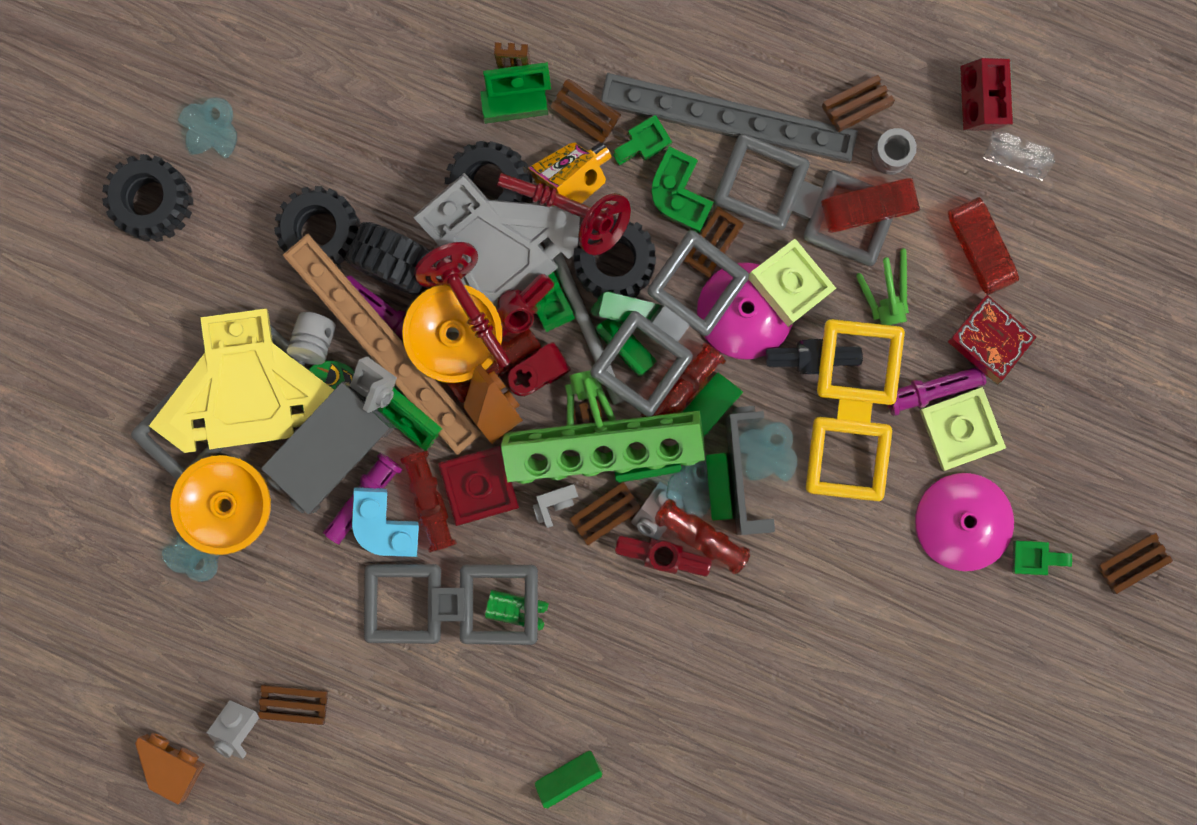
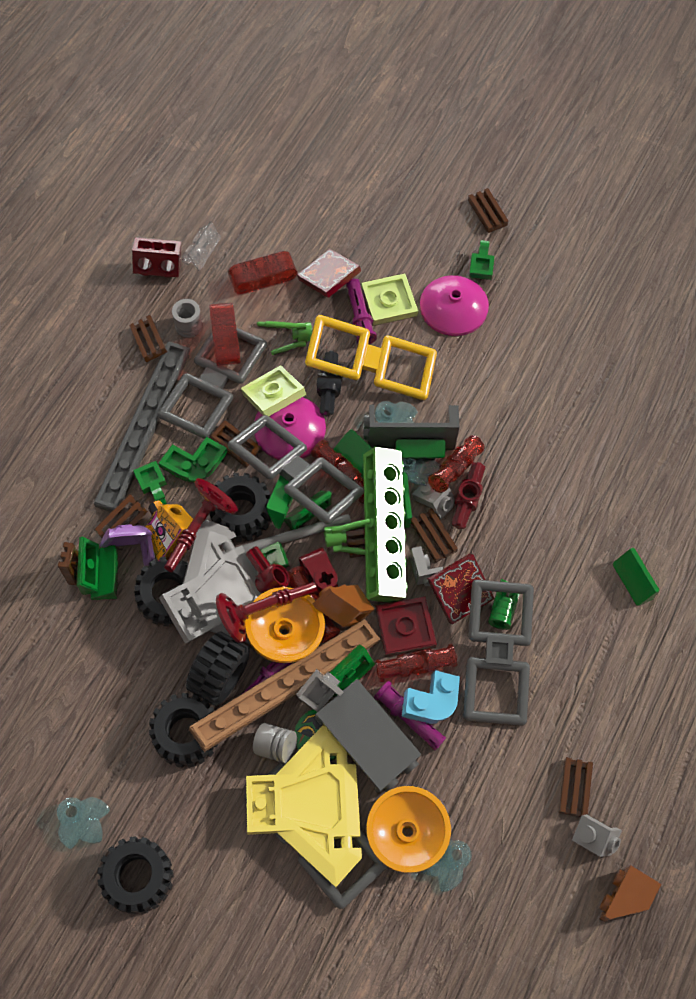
camera: 90 degrees left, 20 degrees down
(529, 543) = (454, 585): none -> dark red tile
(559, 123) = (130, 535): none -> medium lavender piece

